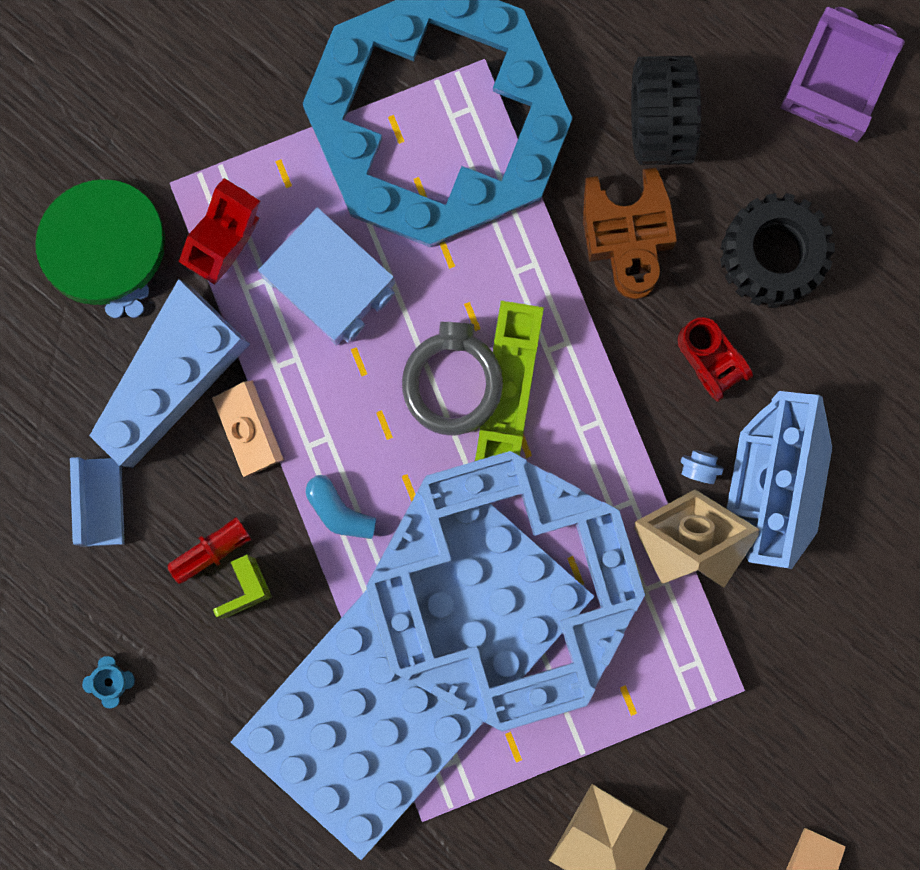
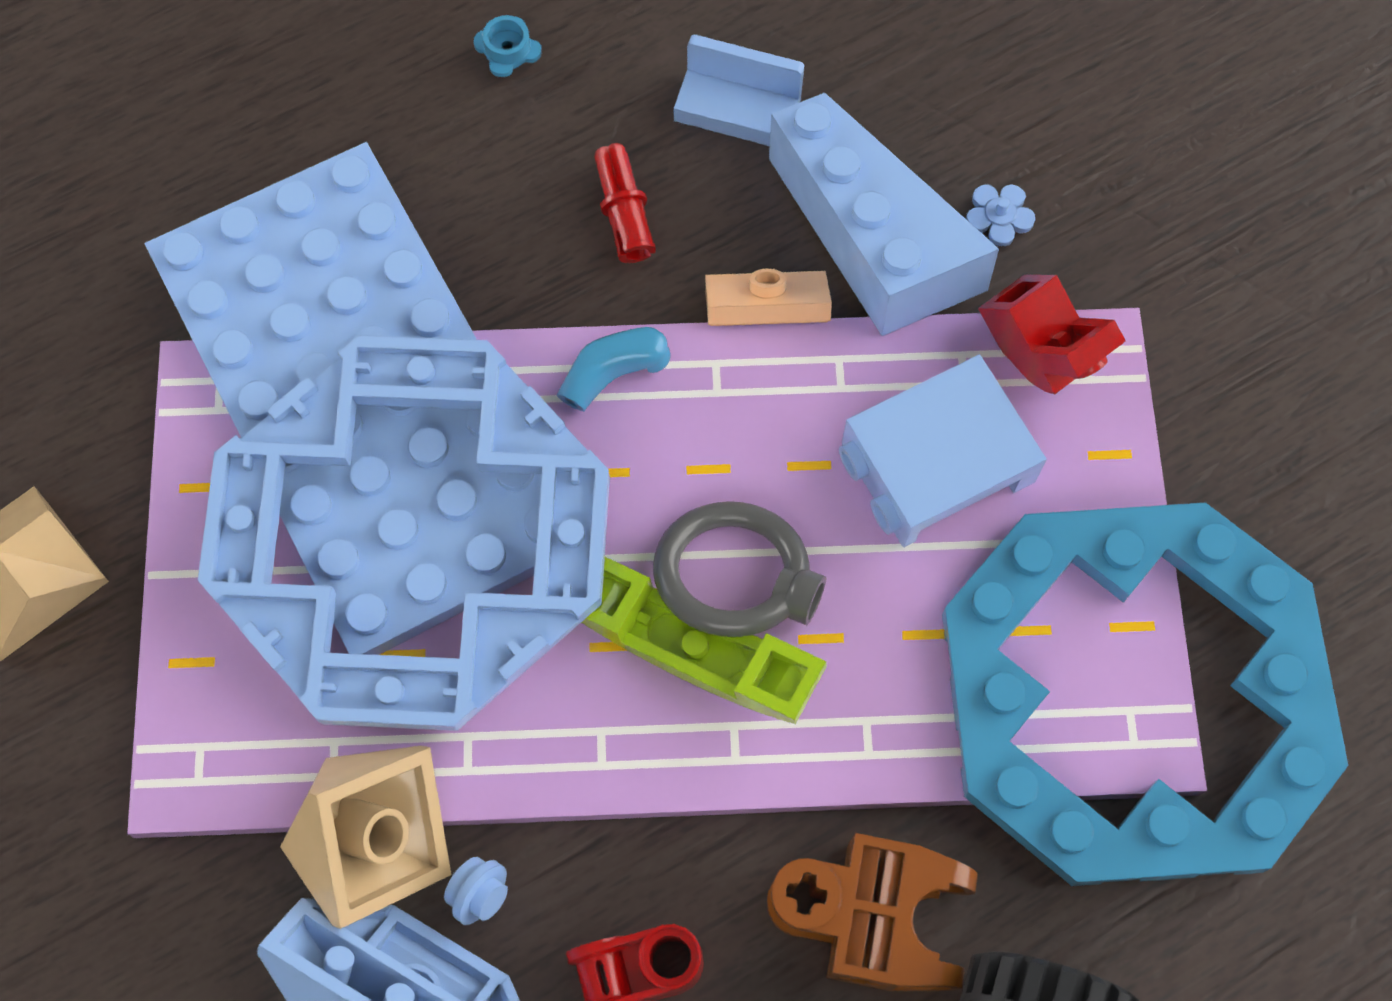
camera: 110 degrees right, 15 degrees down
(100, 241) = (1082, 199): green tile -> none
(252, 585) = (557, 217): lime panel -> none

